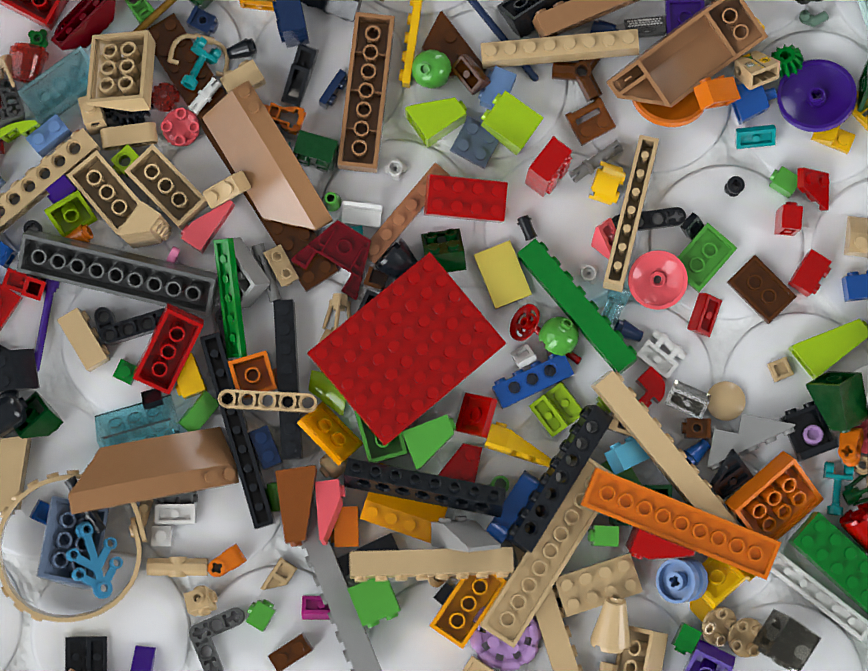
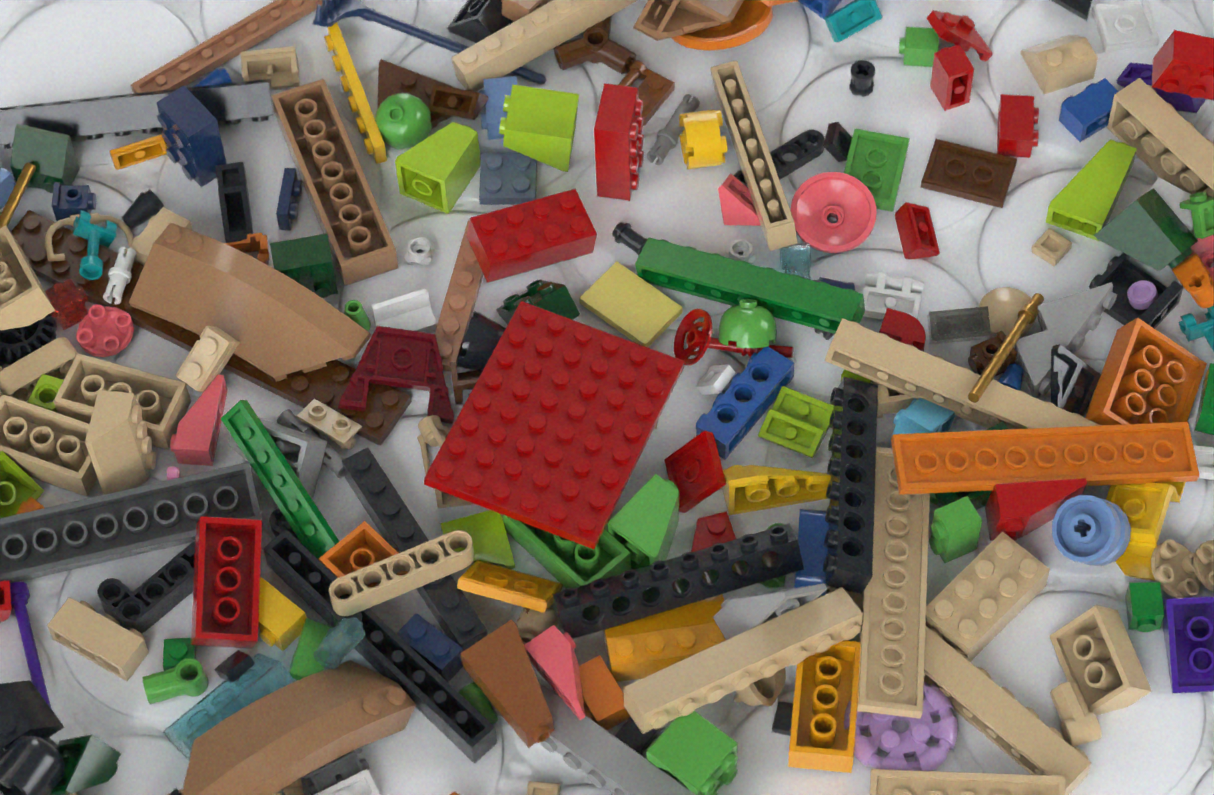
camera: 25 degrees left, 25 degrees down
(113, 390) = (173, 682): none -> bright green piece
(213, 422) = (339, 642): none -> clear light blue piece
(612, 626) = (1035, 625): tan cone -> none
(733, 414) = (1025, 316): none -> pearl gold bar

